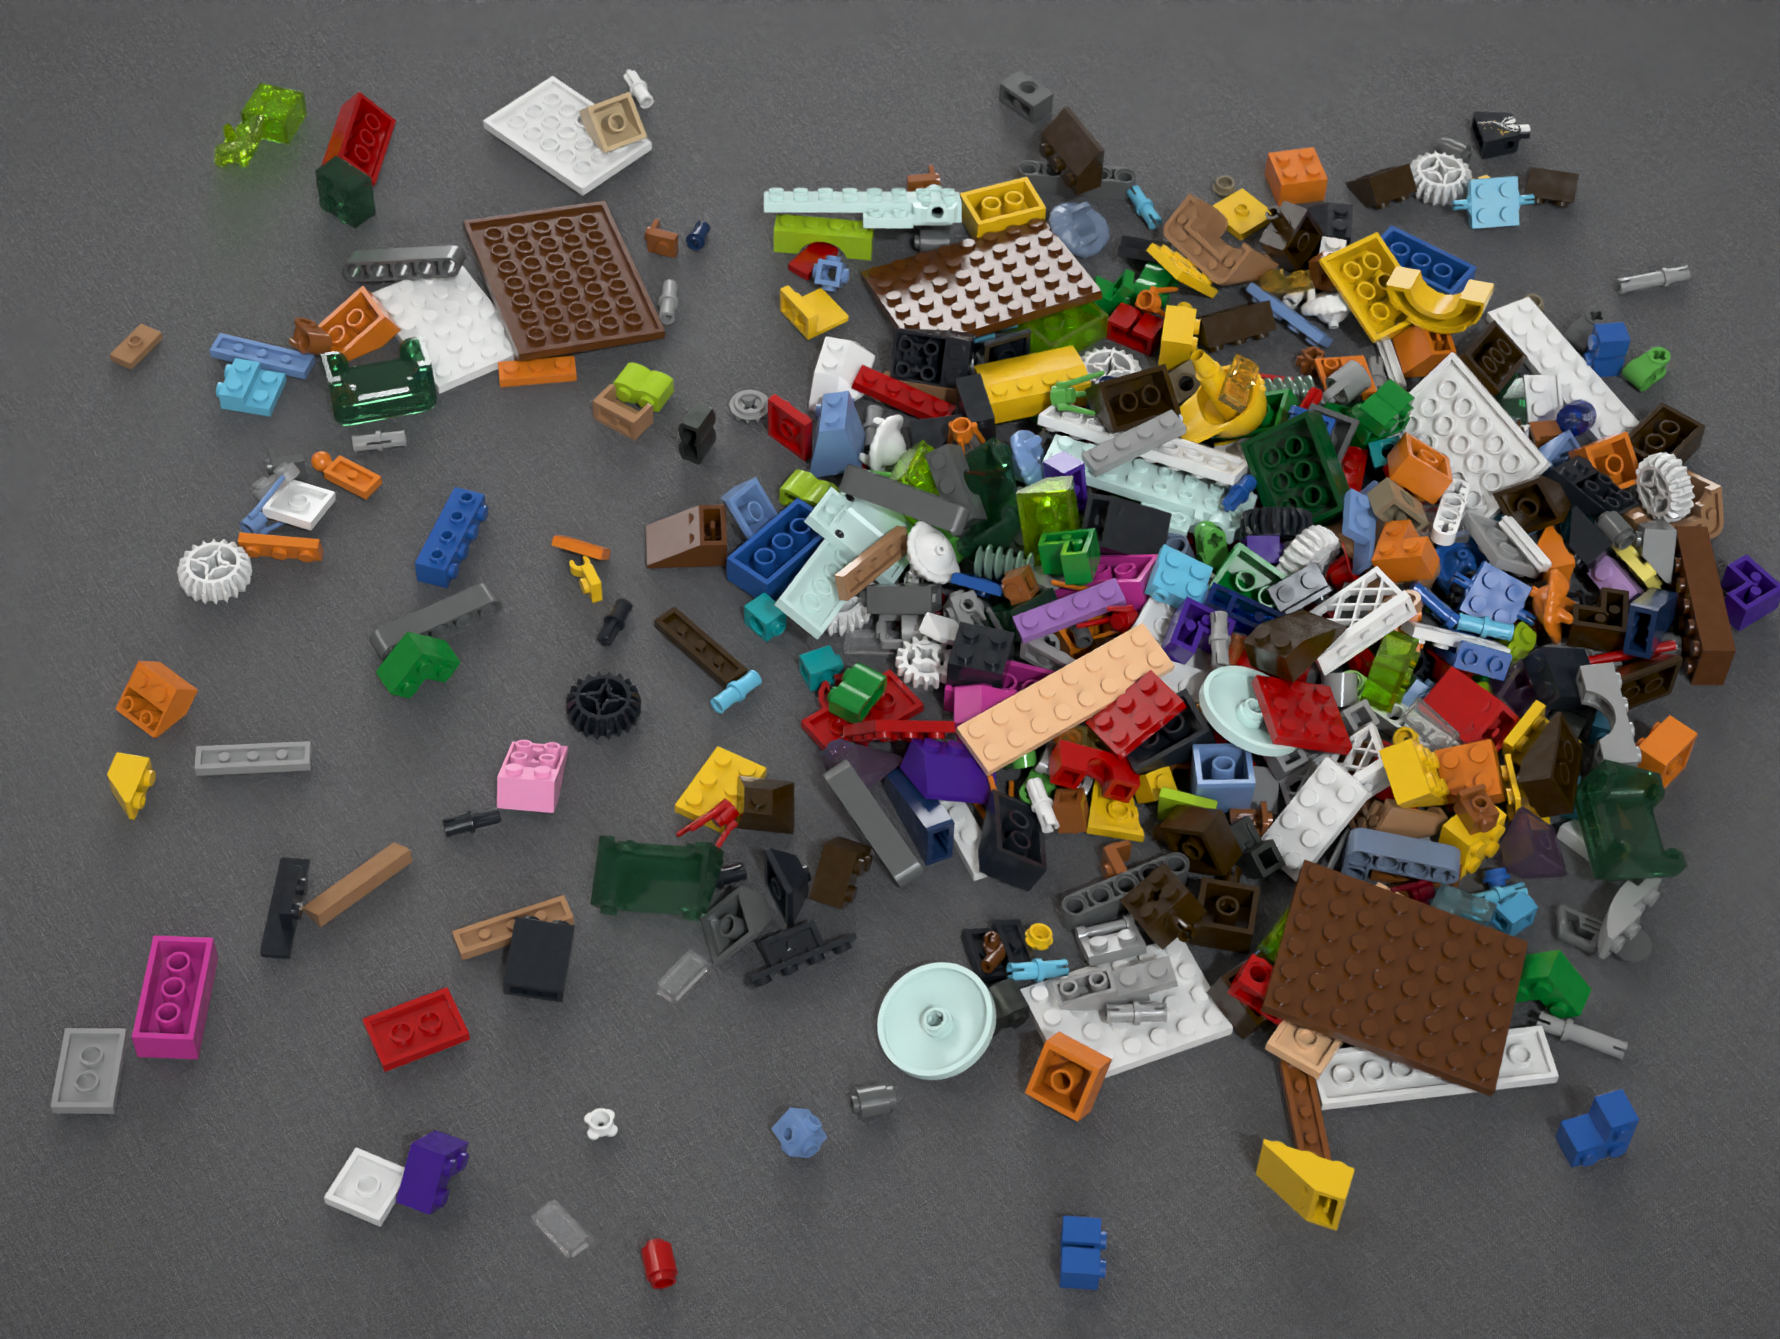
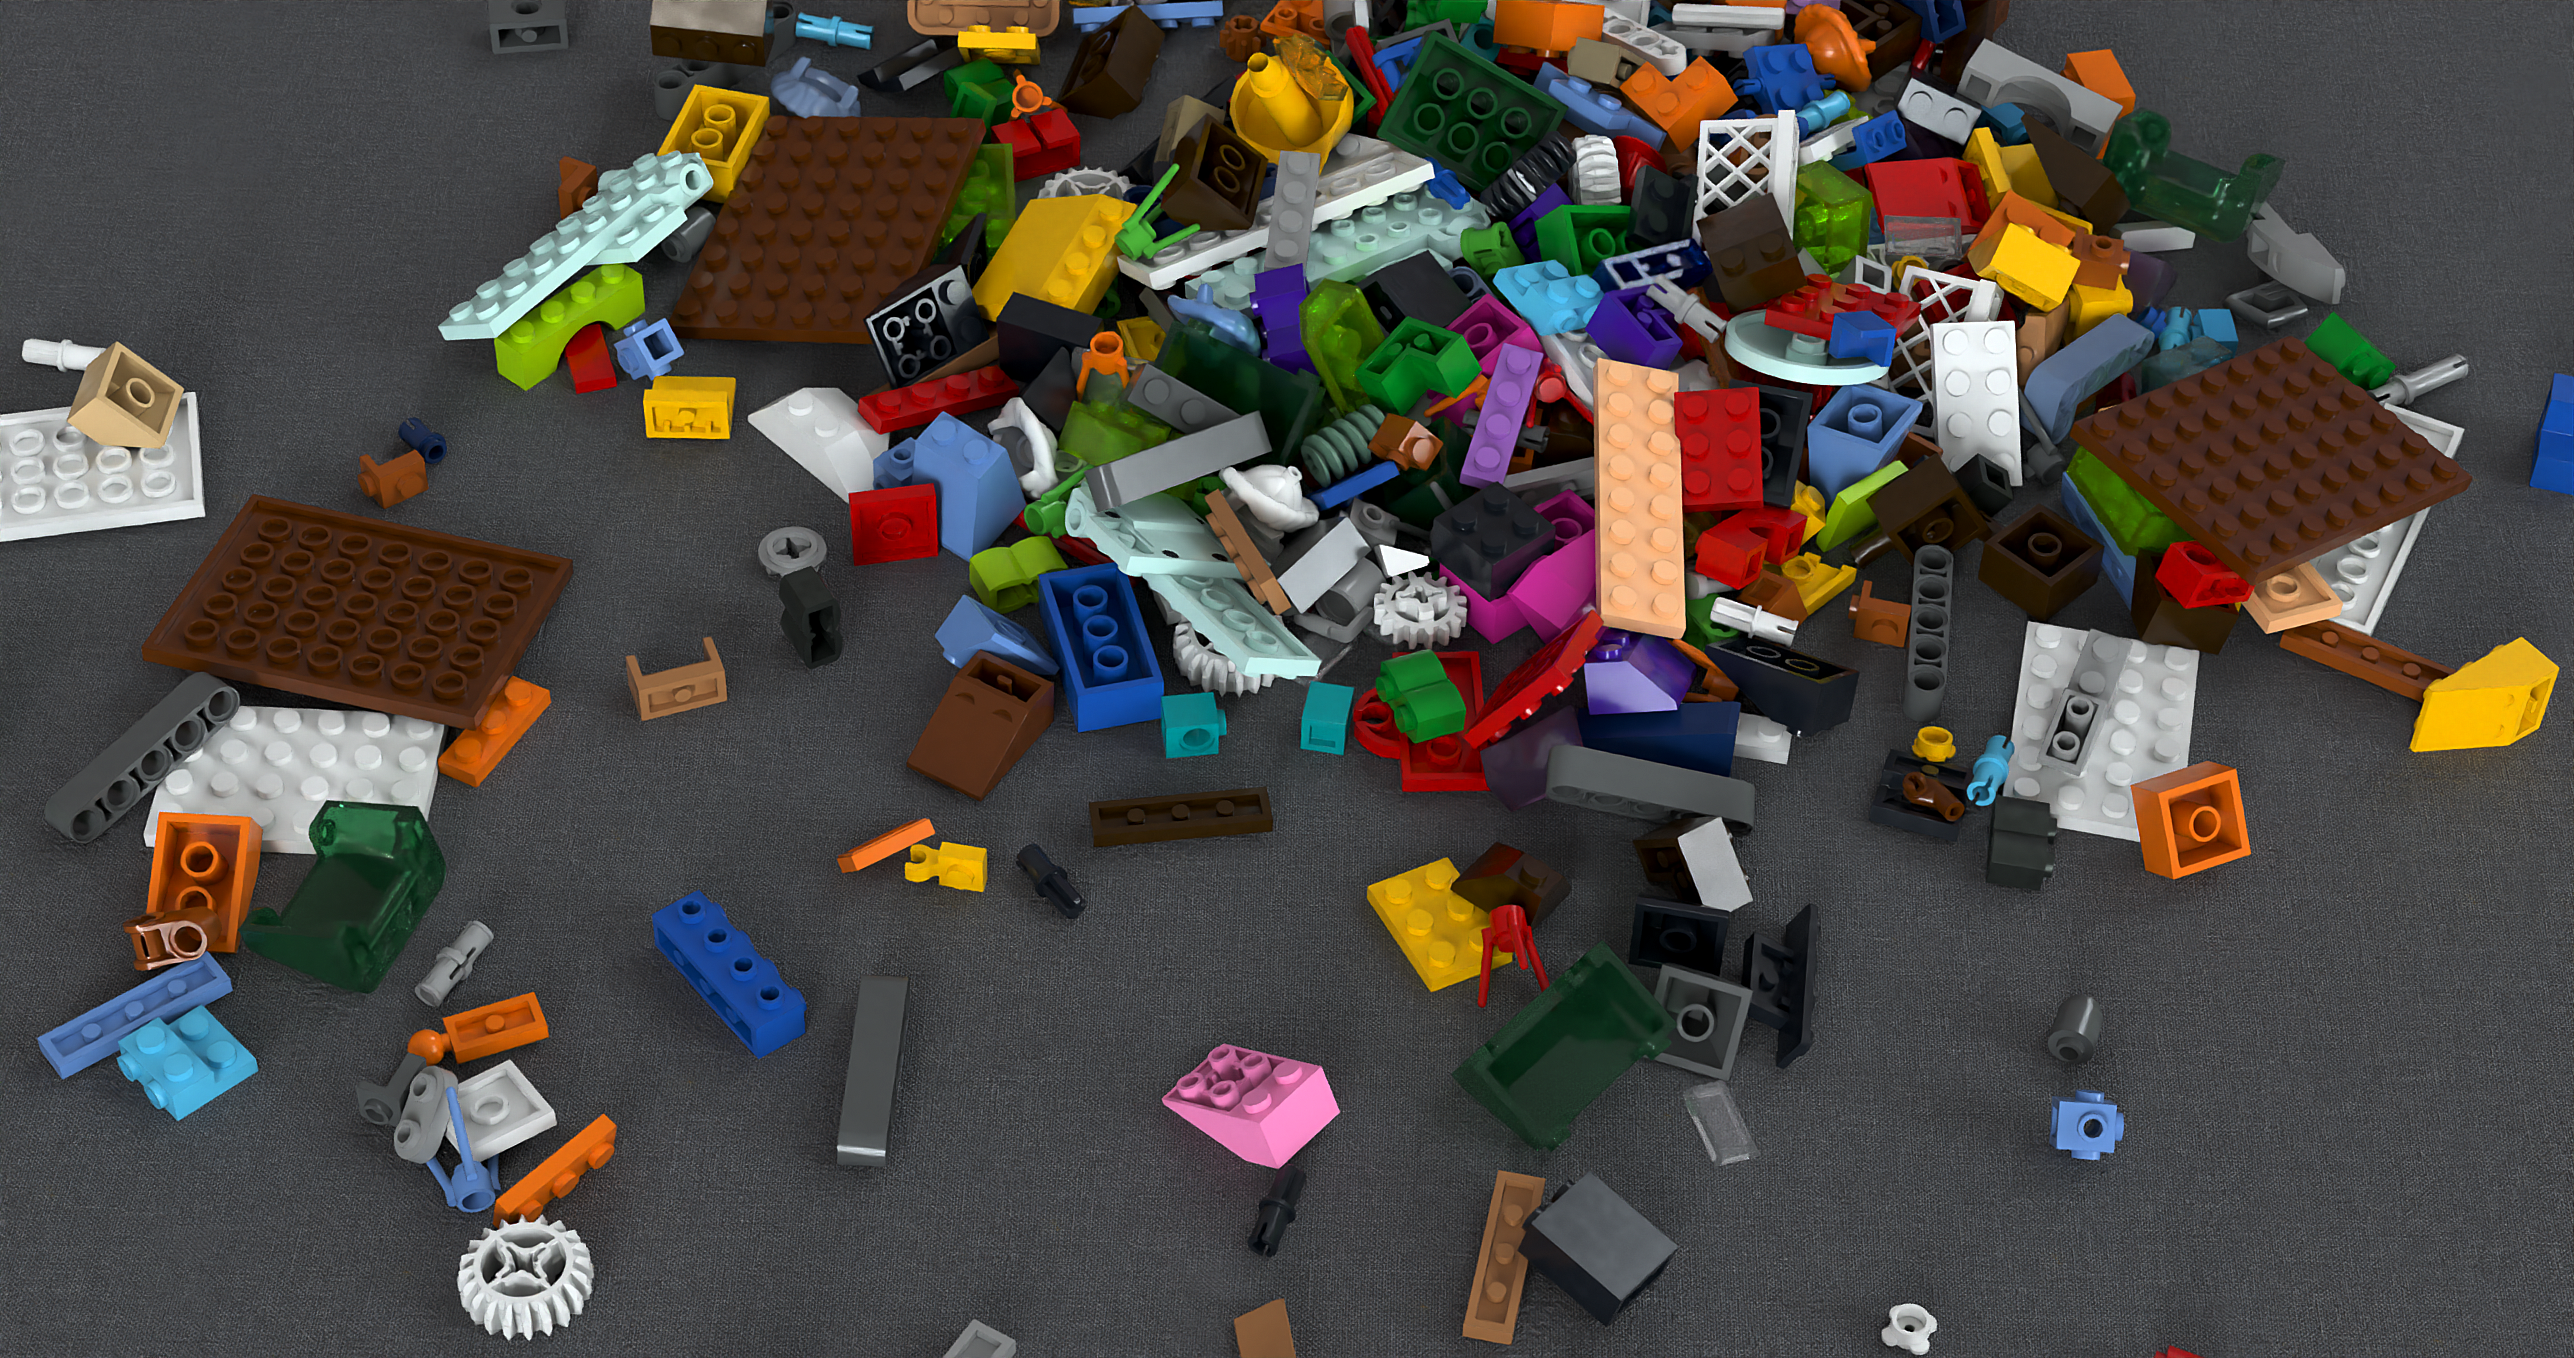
camera: 55 degrees left, 5 degrees down
(413, 661) = (947, 1125): green brick -> none
(603, 705) = (1196, 979): black gear -> none
(643, 386) = (654, 633): lime brick -> none
(668, 302) = (514, 530): light grey pin -> none
(736, 691) = (1289, 821): medium azure pin -> none
(936, 1021) = (2009, 898): light aqua dish -> none
(1081, 1253) = (2438, 958): blue piece -> none
(1110, 947) = (2004, 690): light grey plate -> none
(1136, 1012) = (2131, 714): light grey pin -> none
(1164, 907) = (2023, 596): dark brown brick -> none
(1177, 335) = (1107, 113): yellow brick -> none
(1261, 721) = (1862, 335): none -> blue panel

